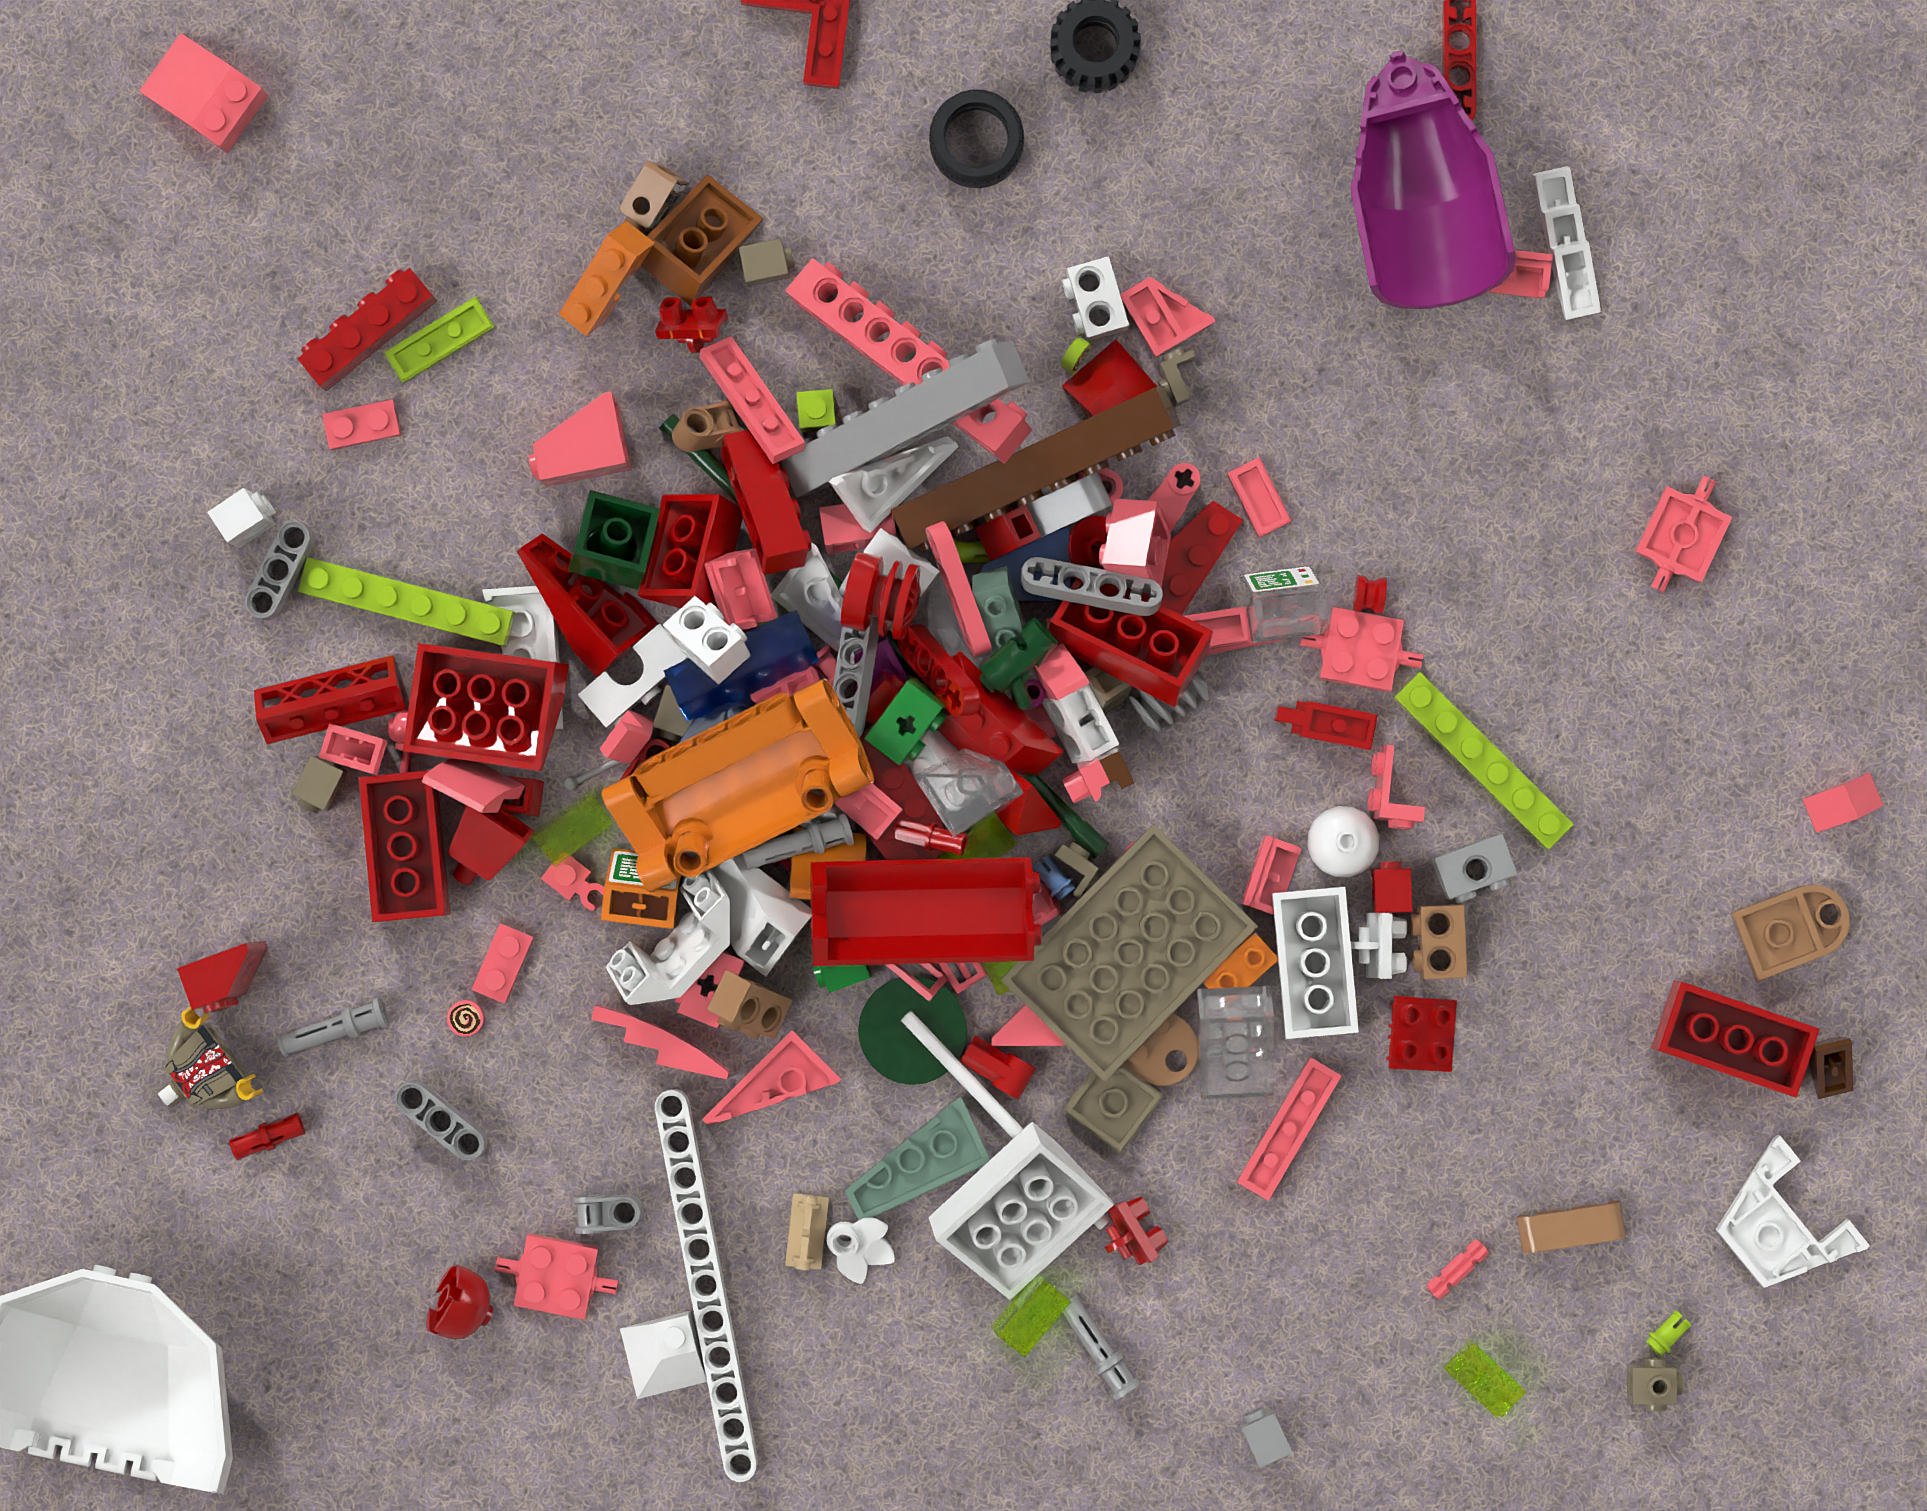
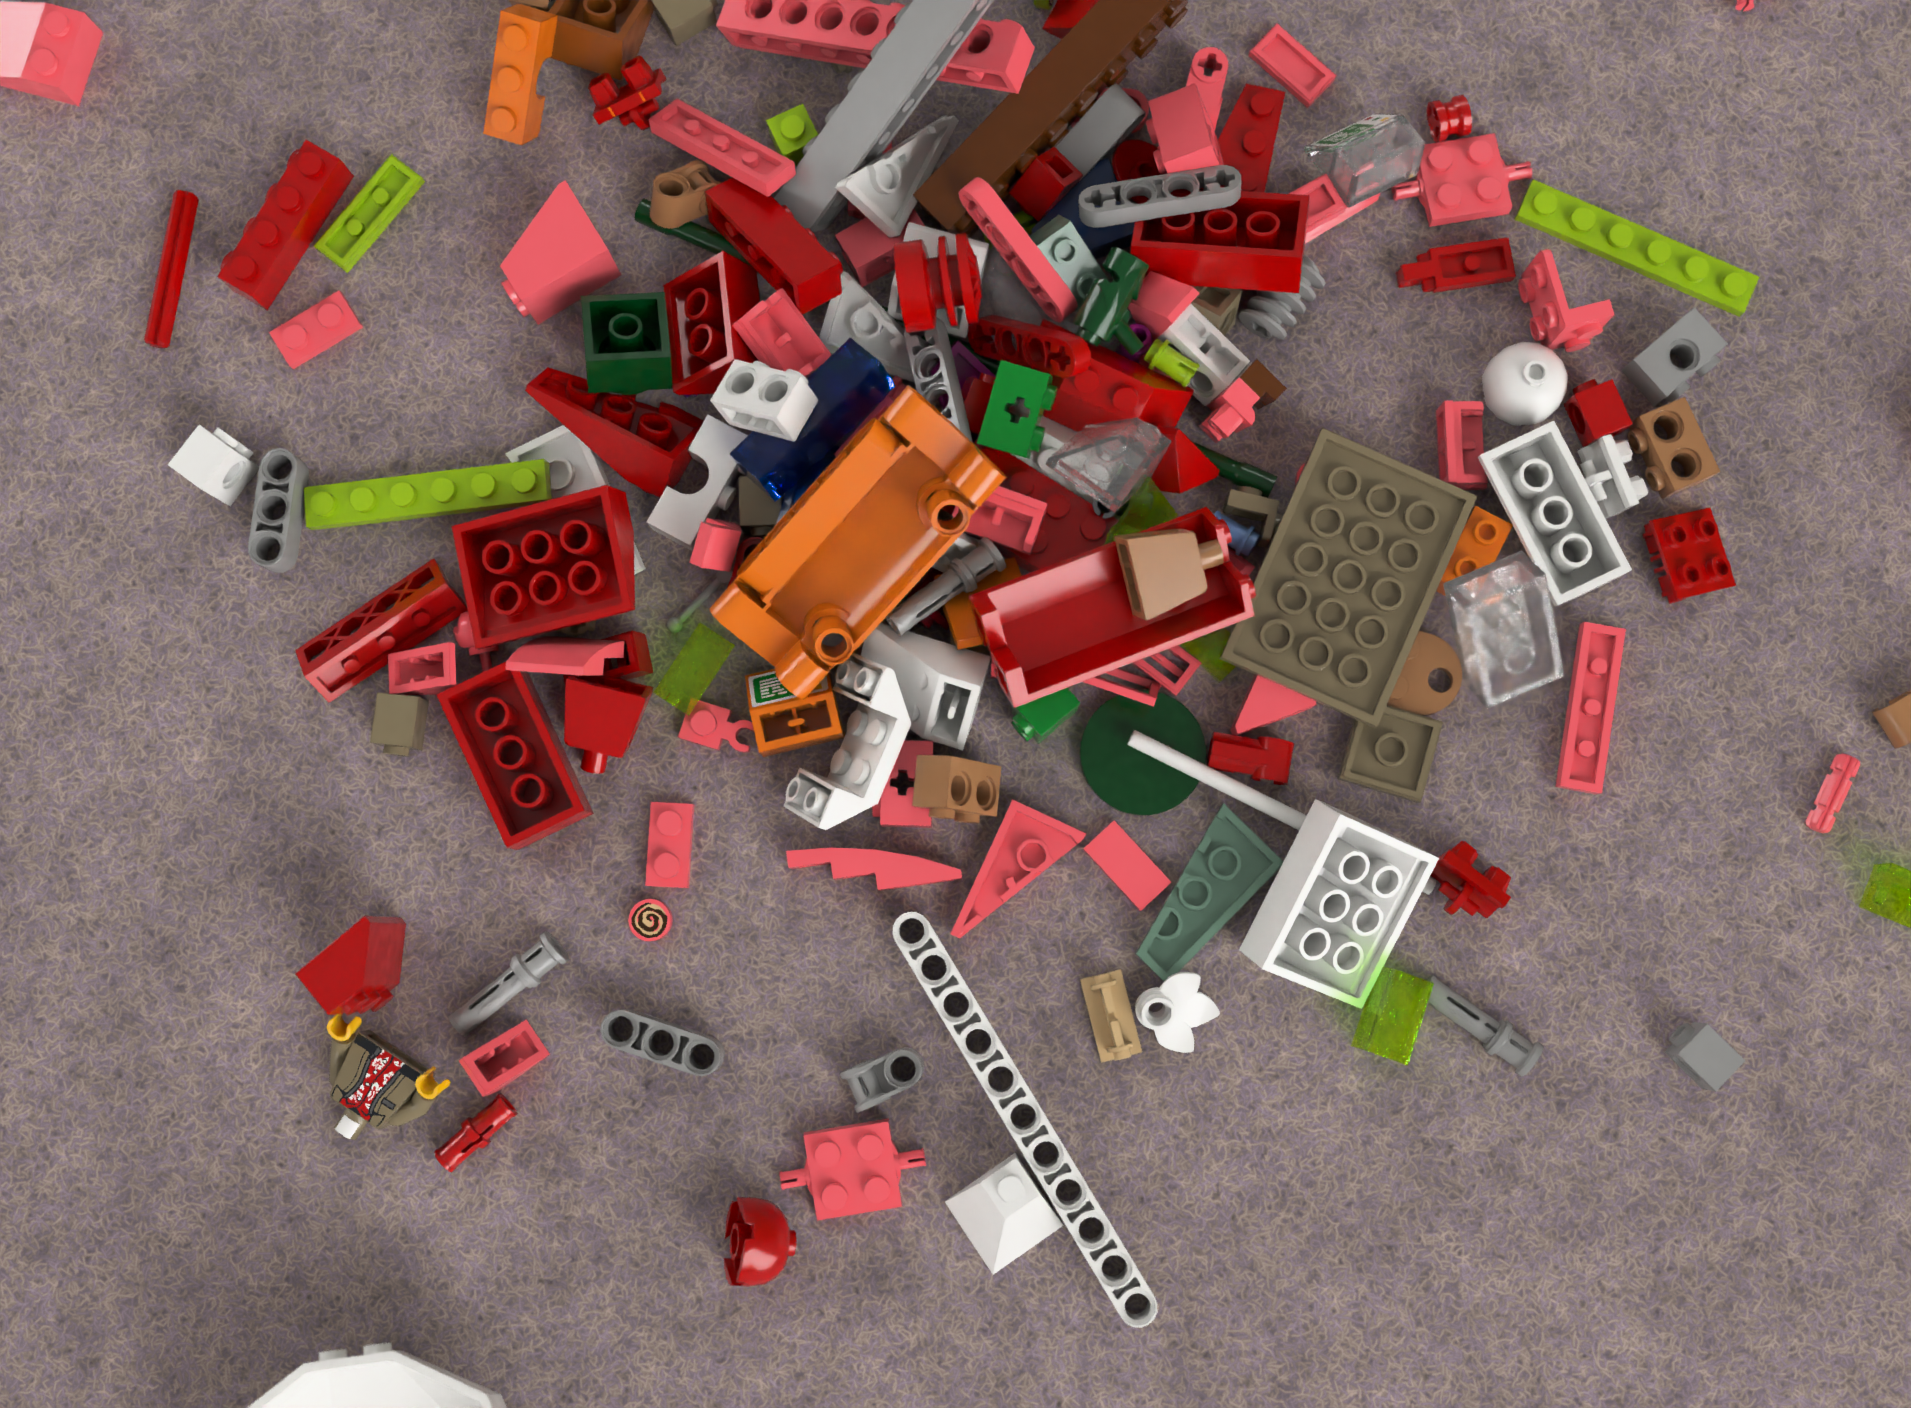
camera: 20 degrees left, 5 degrees down
(258, 328) = (171, 269): none -> red axle
(311, 1086) = (504, 1058): none -> coral slope
(865, 1116) = (1127, 865): none -> coral tile
(930, 837) = (1088, 526): red axle -> none
(975, 897) = (1164, 568): none -> medium nougat torso
(1049, 721) = (1171, 362): none -> lime pin

